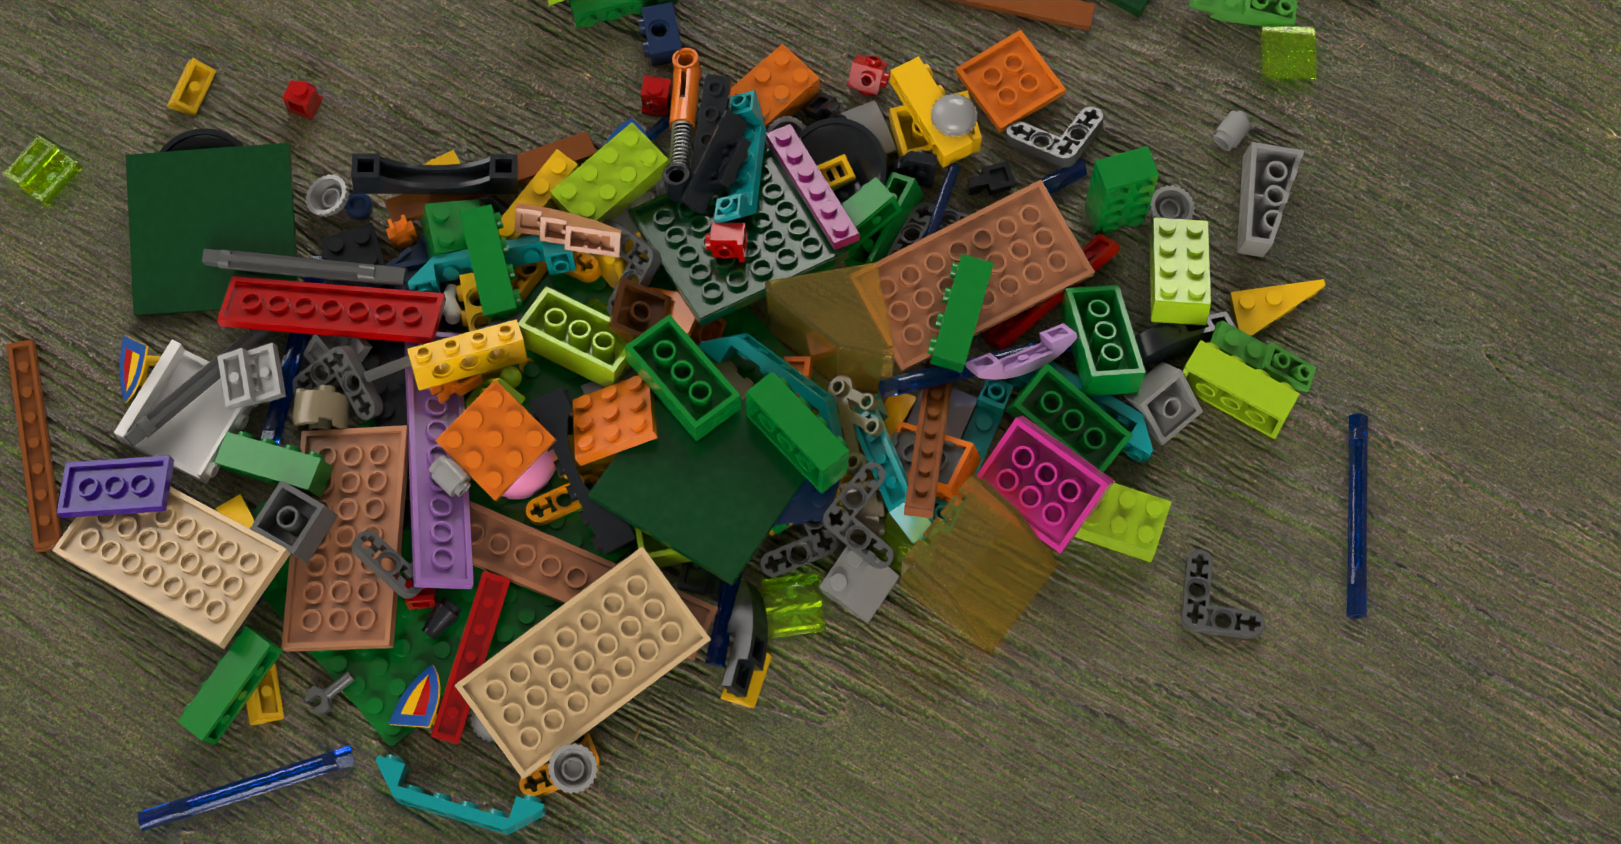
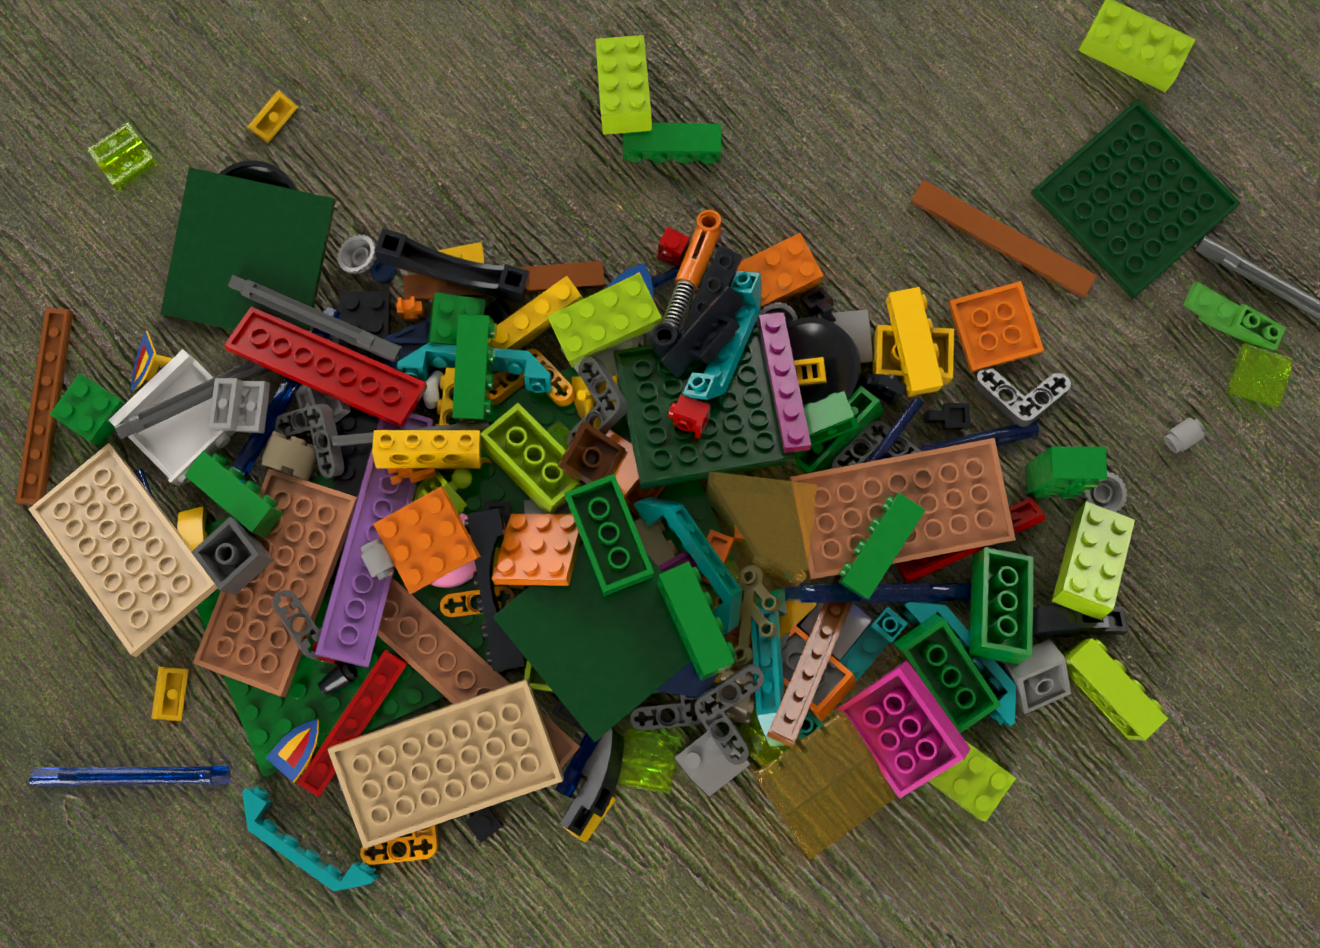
camera: 20 degrees right, 10 degrees up
(86, 429) = (87, 410): none -> green brick
(115, 486) = (95, 471): plate -> none
(230, 685) = (139, 683): green brick -> none
(304, 95) = (362, 156): red brick -> none
(328, 693) = (223, 713): dark grey bar -> none
(569, 229) = (556, 360): nougat slope -> none
(572, 768) = (408, 855): light grey hat -> none
(641, 721) = (484, 824): none -> black plate
(659, 20) = (699, 175): dark blue brick -> none
(868, 75) = (869, 284): red brick -> none
(954, 115) = (934, 354): light grey hat -> none
(1053, 343) = (926, 604): lavender slope -> none
(1208, 612) = (1015, 886): dark grey beam -> none
(1259, 307) = (1155, 612): yellow wing -> none
(1264, 192) = (1194, 508): light grey wedge -> none
(1271, 358) = (1142, 664): bright green slope -> none
(1357, 517) = (1180, 838): clear blue piece -> none

